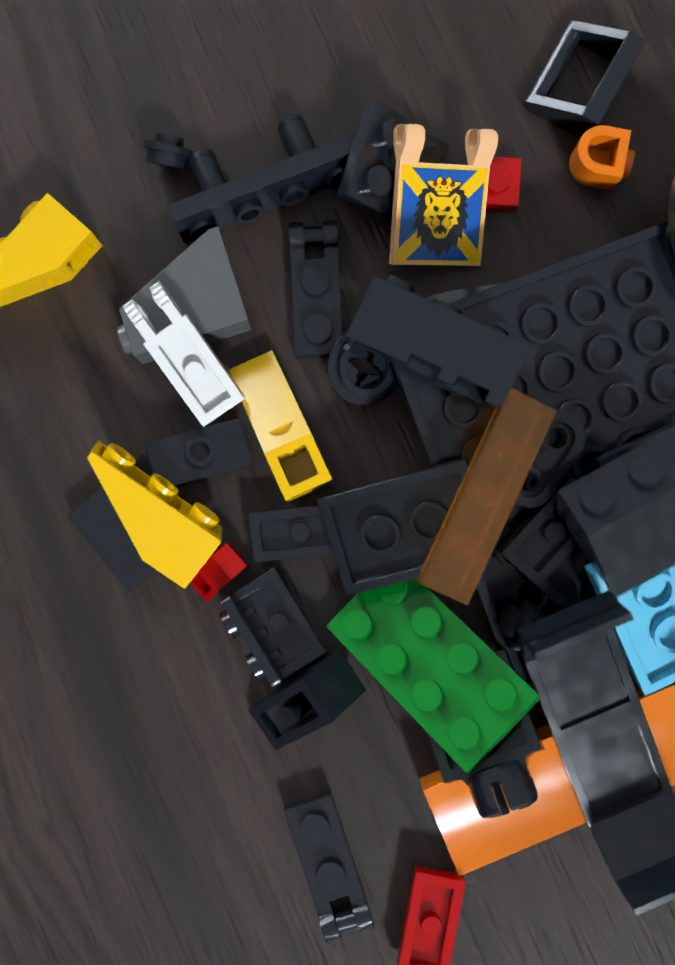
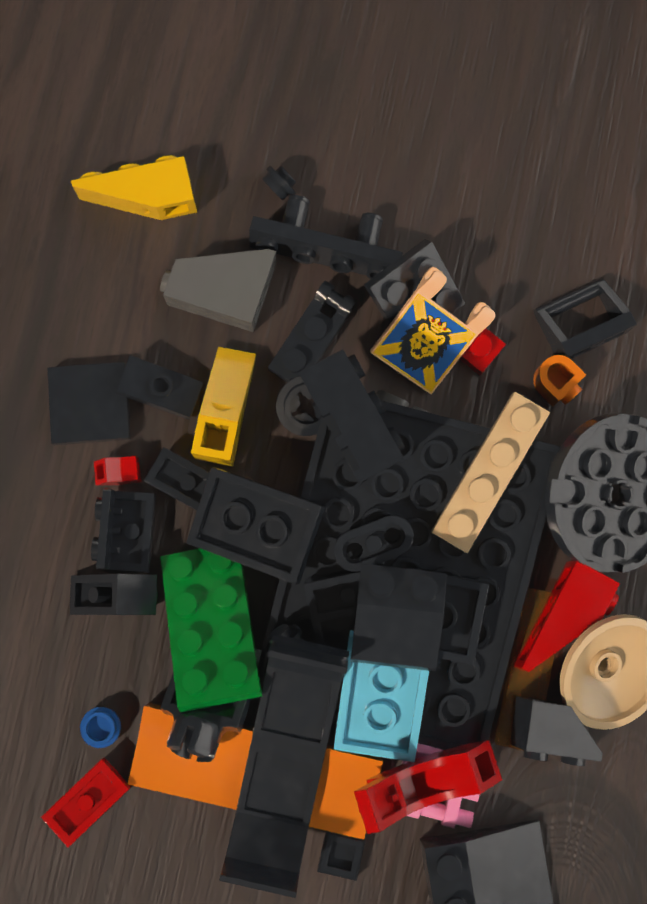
camera: 30 degrees right, 5 degrees down
(161, 525) = (101, 409): yellow slope -> none
(186, 358) = (194, 319): white hinge -> none
(328, 865) = (48, 715): black plate -> none
(390, 839) = (100, 727): none -> blue plate
(486, 497) = (317, 538): clear orange tile -> none
(611, 298) = (490, 472): none -> tan plate

